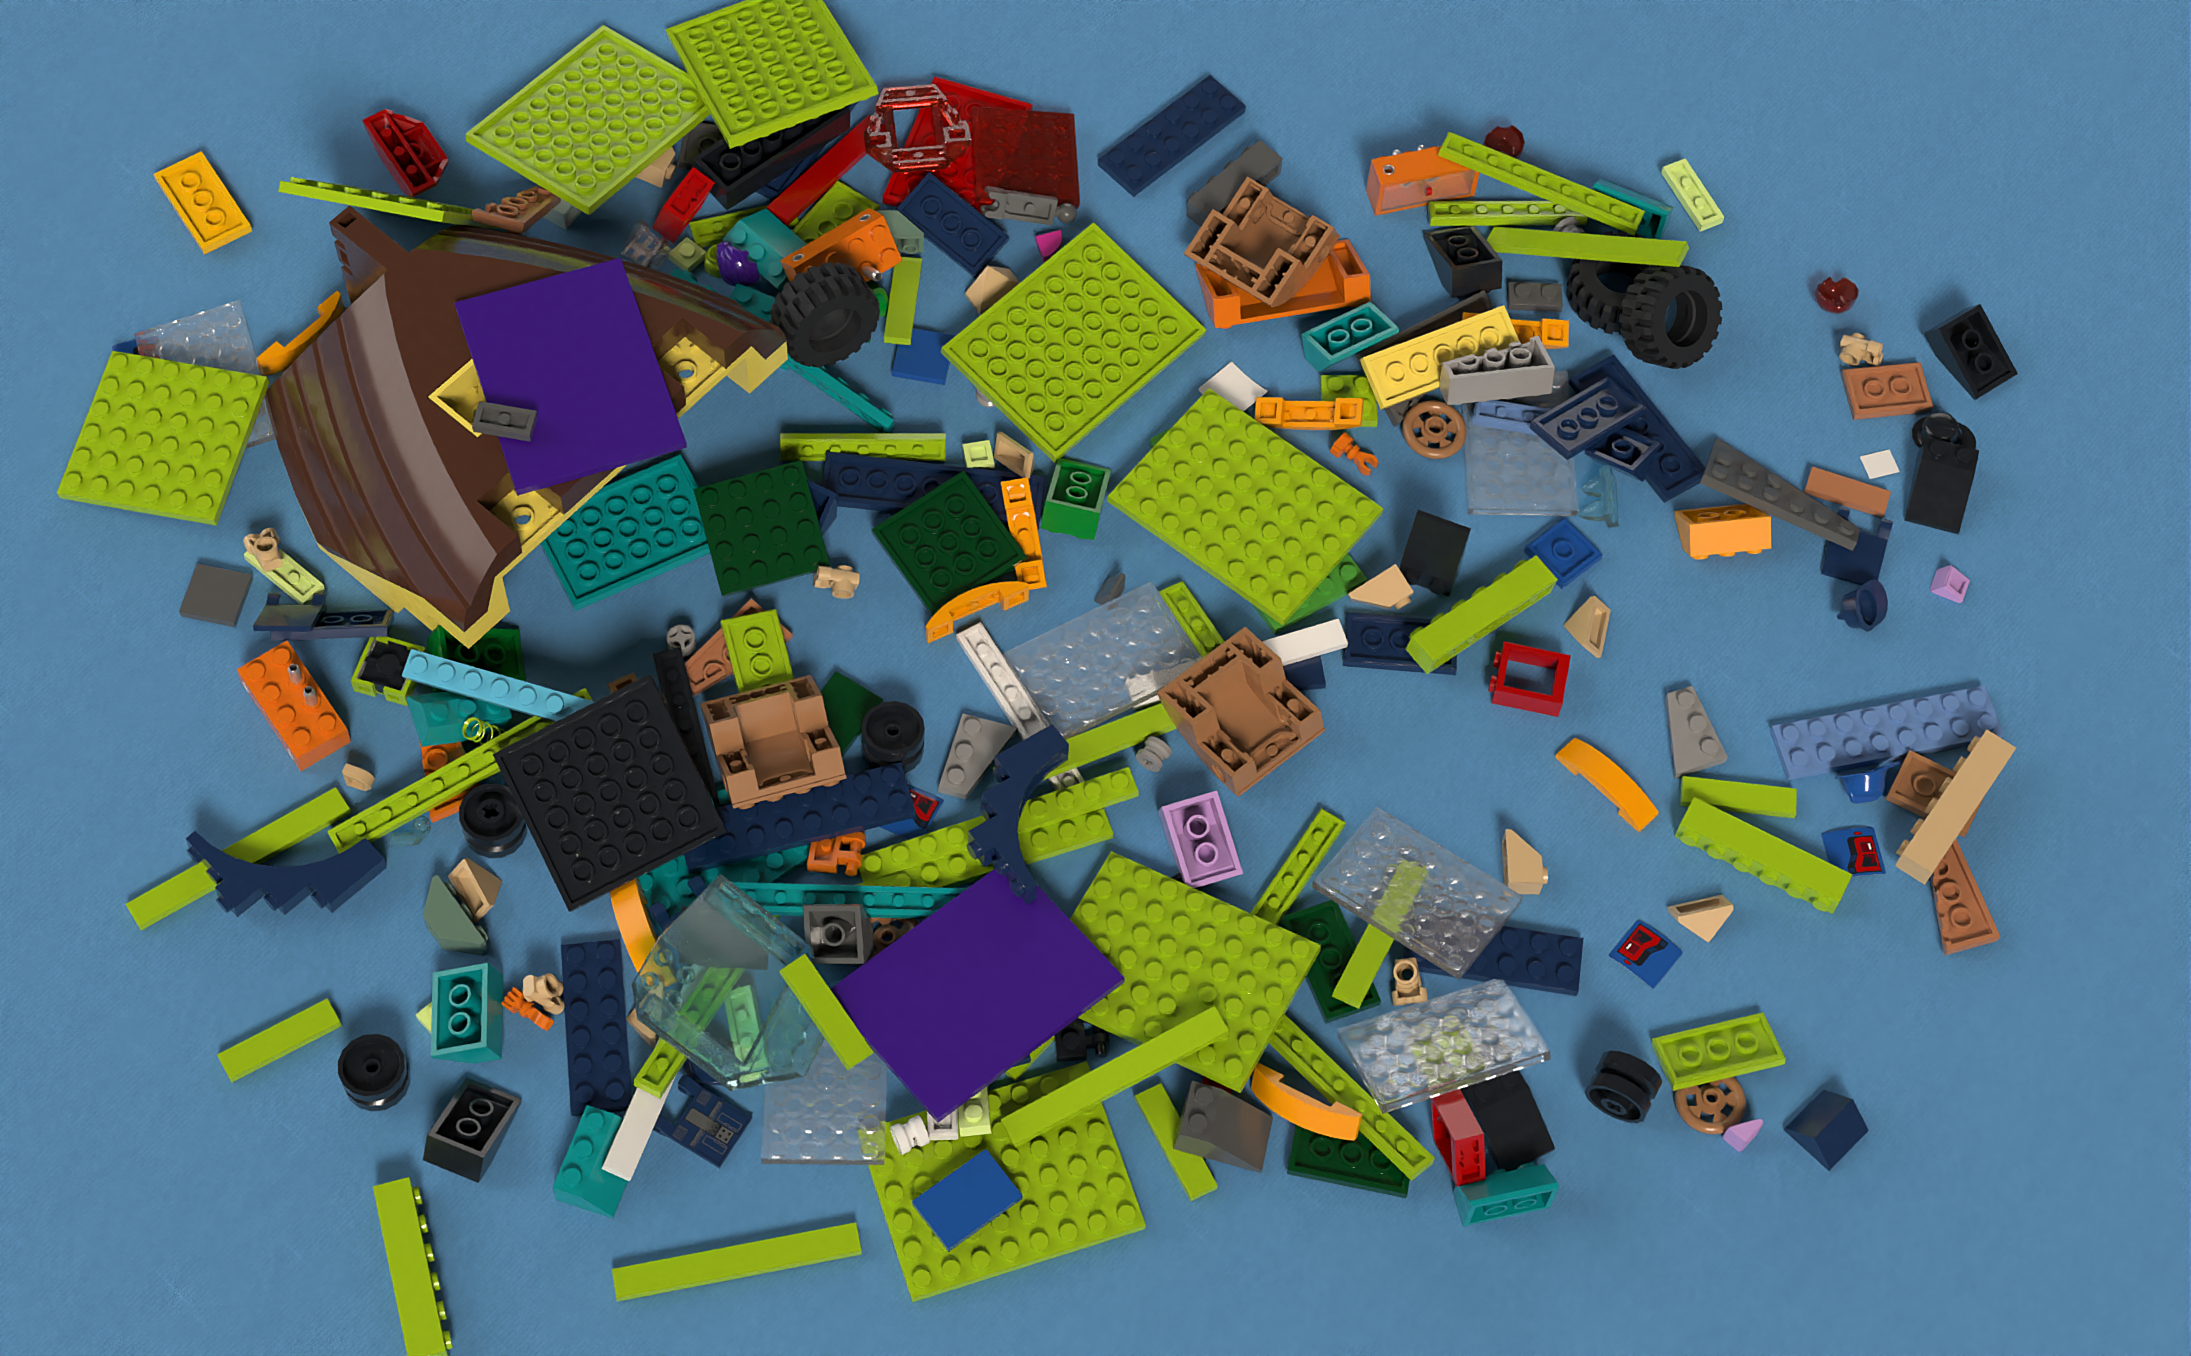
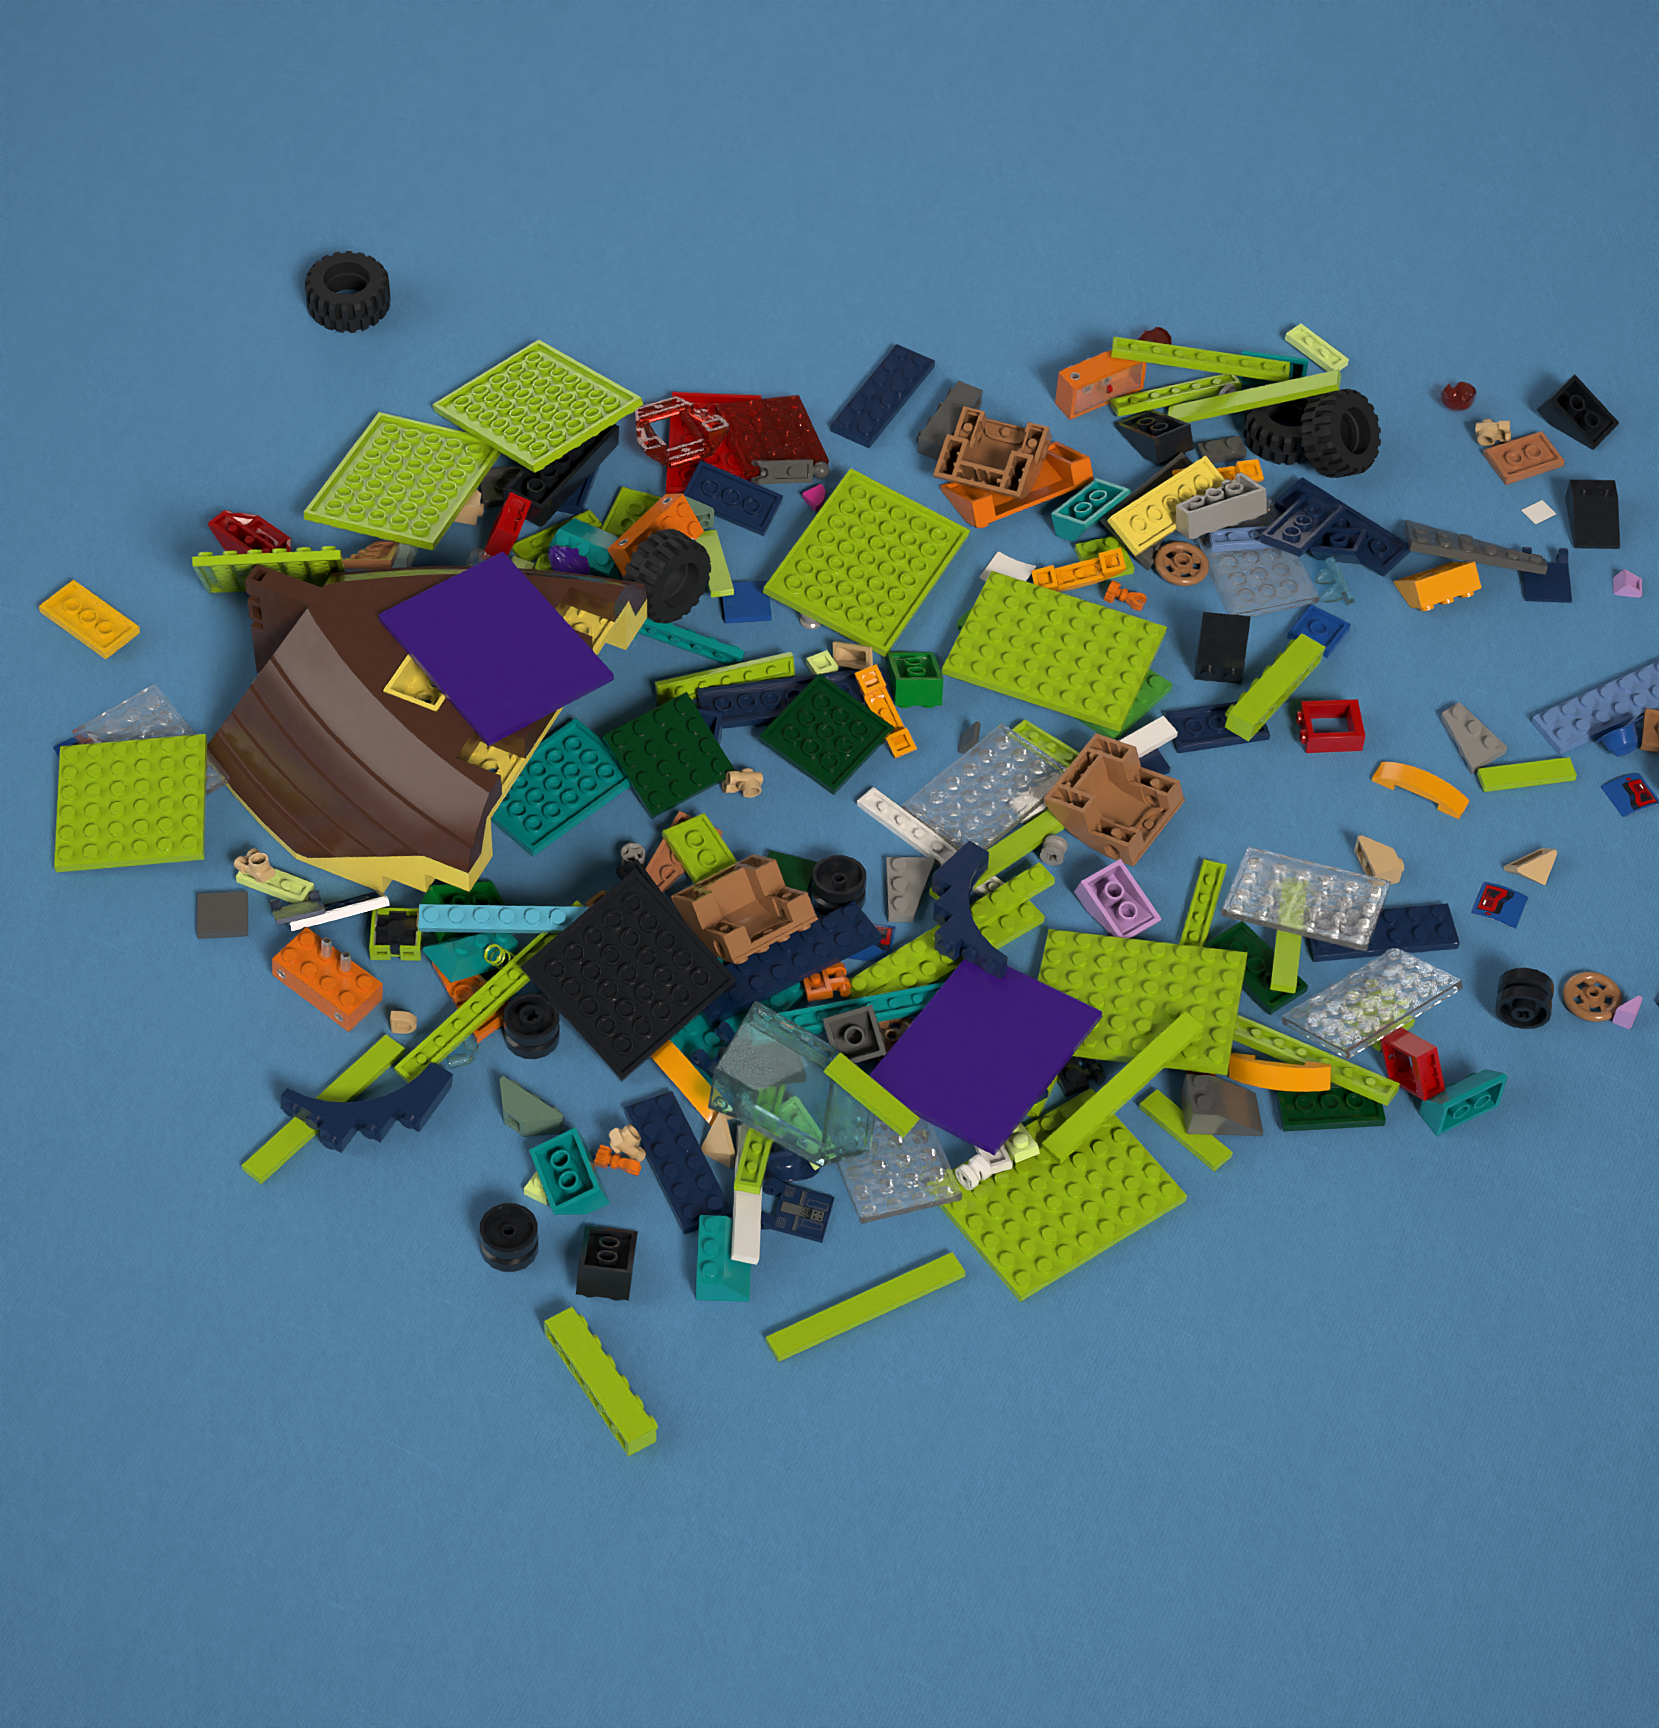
camera: 15 degrees left, 10 degrees down
(279, 358) = (208, 720): light orange slope -> none
(279, 1040) = (415, 1237): lime tile -> none
(475, 887) = (535, 1080): tan slope -> none
(504, 421) = (460, 689): dark grey plate -> none
(821, 175) = (610, 481): red tile -> none
(967, 1200) = (1038, 1210): blue tile -> none
(990, 287) = (781, 539): tan slope -> none
(1006, 593) = (884, 761): light orange slope -> none
(1384, 590) = (1191, 687): tan slope -> none
(1408, 990) = (1324, 973): tan plate -> none
(1509, 1120) = (1455, 1050): black slope -> none
(1590, 625) = (1361, 677): tan slope -> none
(1718, 1051) = (1586, 958): lime tile -> none
(1763, 856) = (1563, 810): lime brick -> none
(1847, 492) = (1523, 536): nougat tile -> none
(1864, 606) = (1569, 614): dark blue piece -> none
(1944, 428) = (1575, 471): black piece -> none

